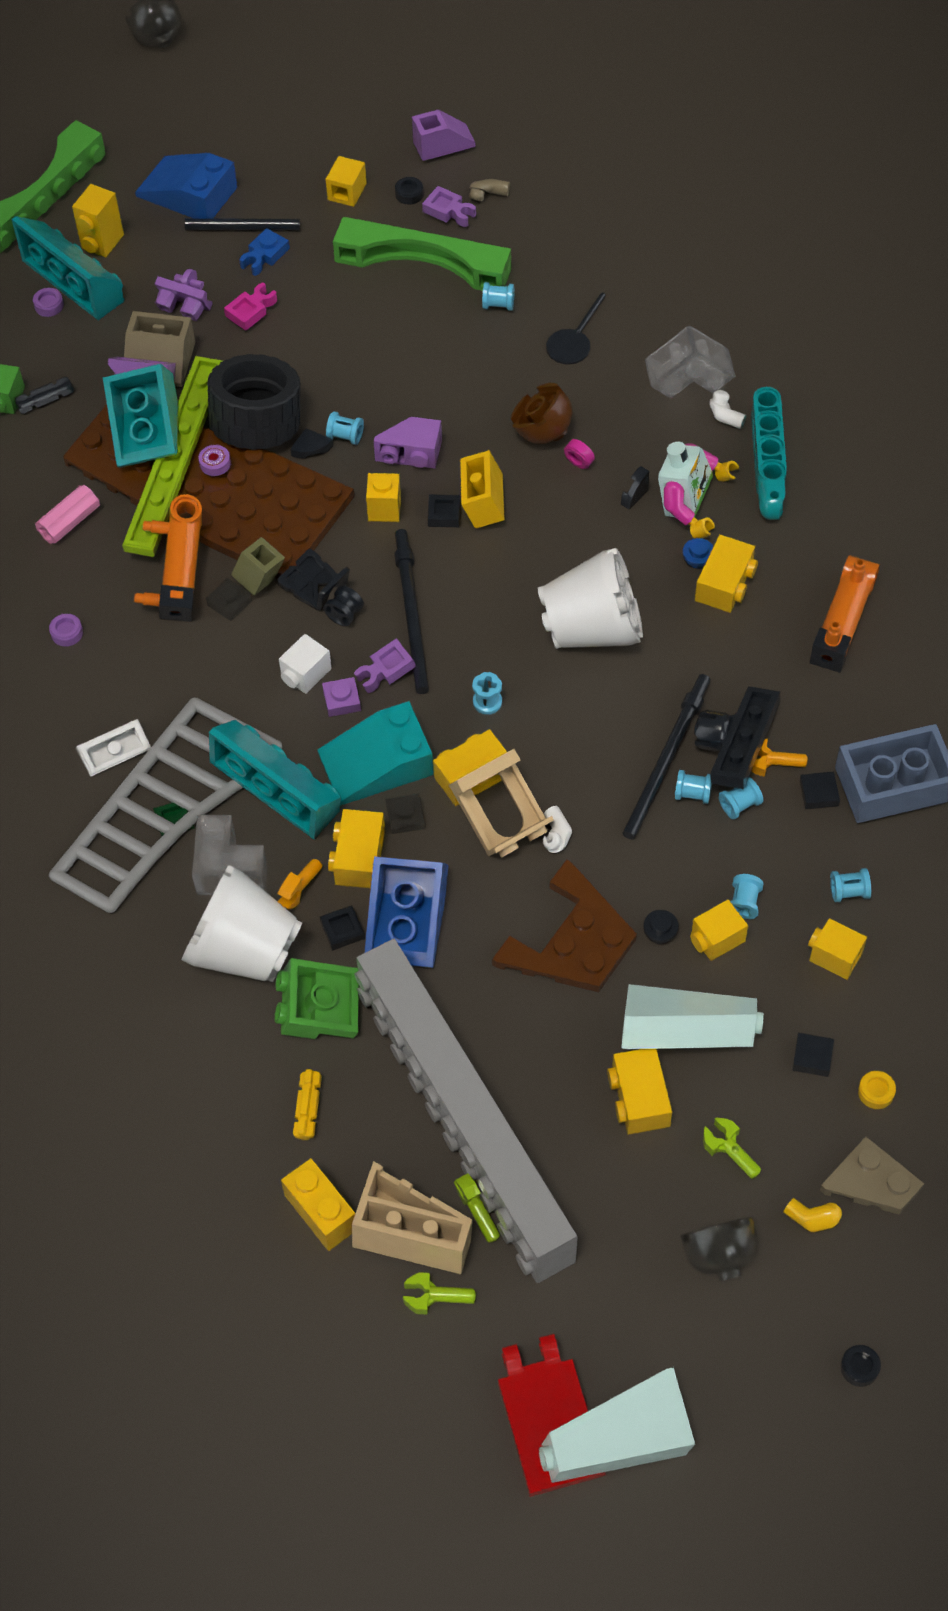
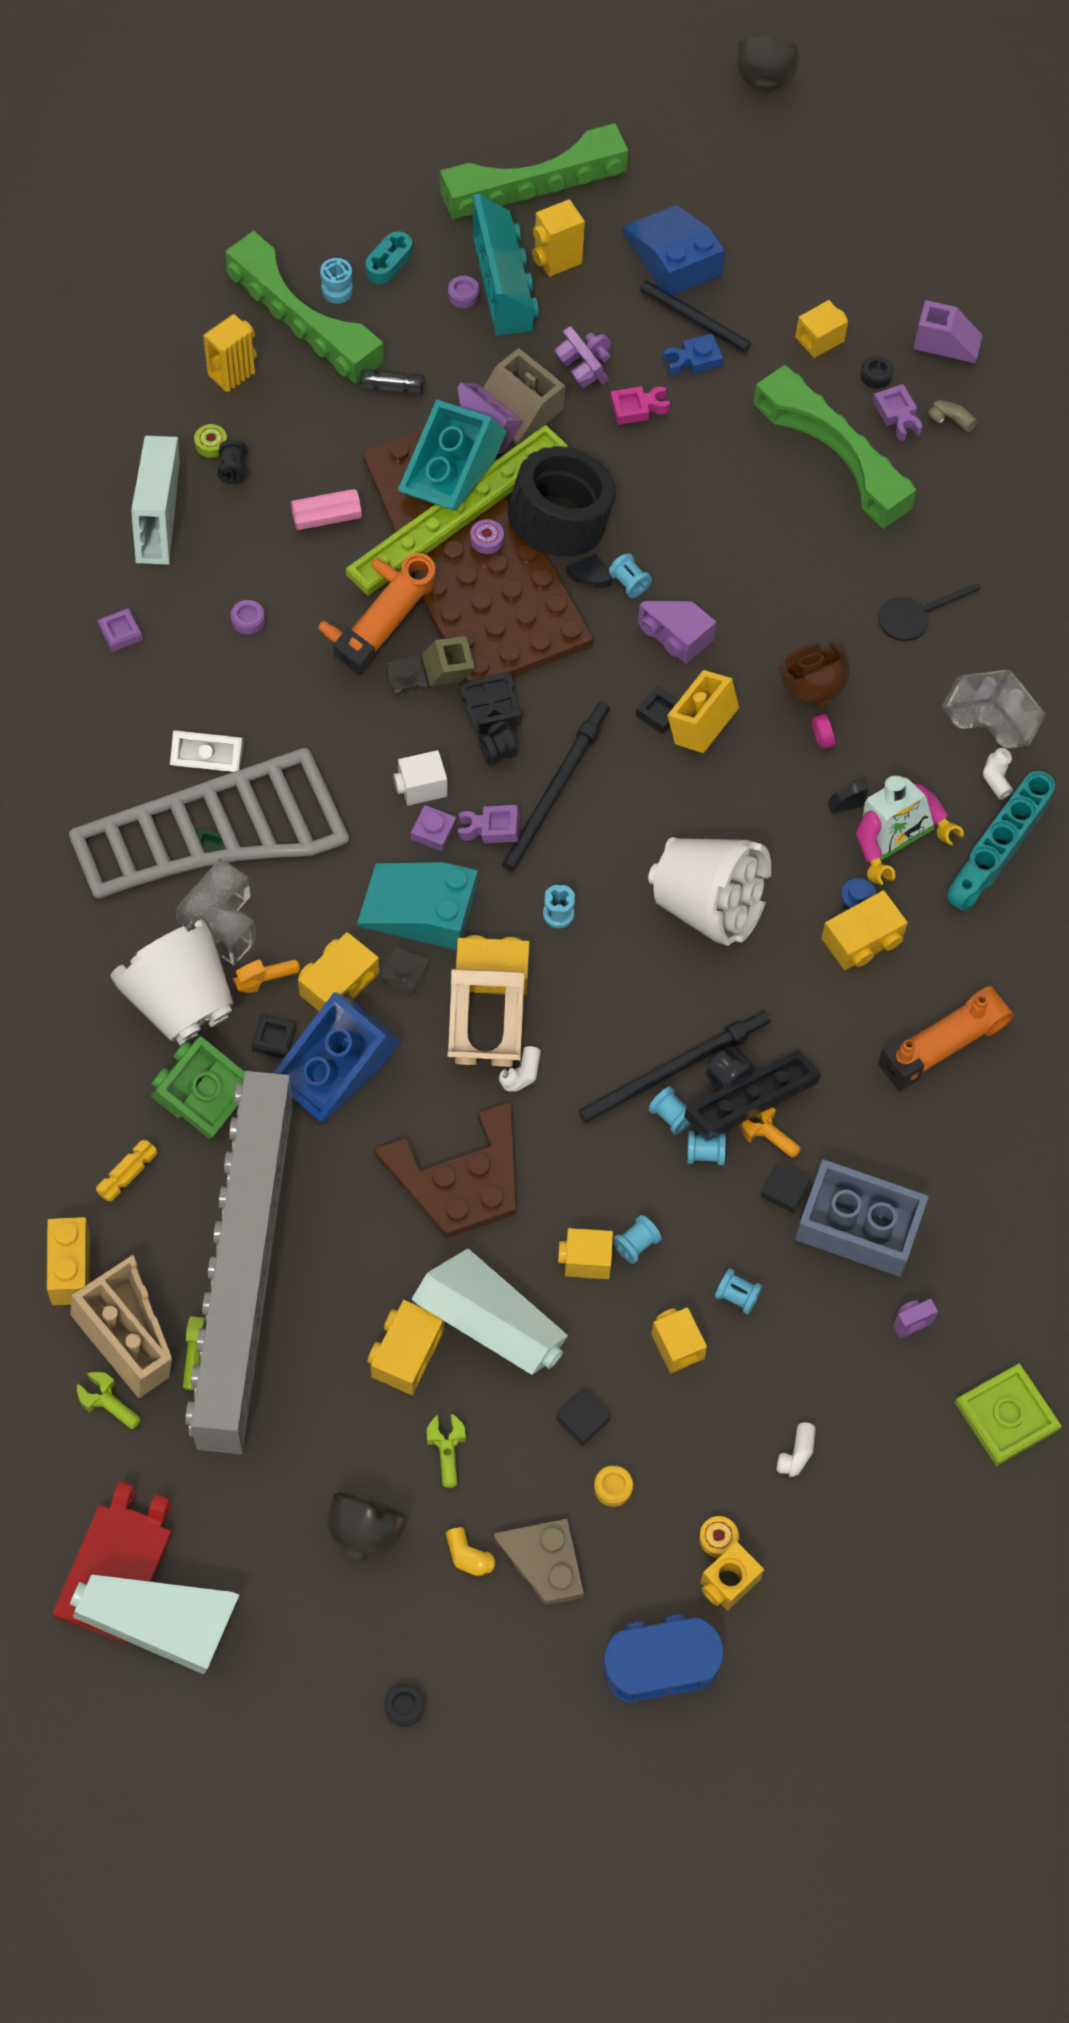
camera: 30 degrees right, 5 degrees up
(273, 777) = (312, 864): teal slope -> none
(383, 497) = (611, 664): yellow brick -> none
(498, 296) = (873, 530): medium azure bush -> none
(660, 926) = (542, 1216): black plate -> none

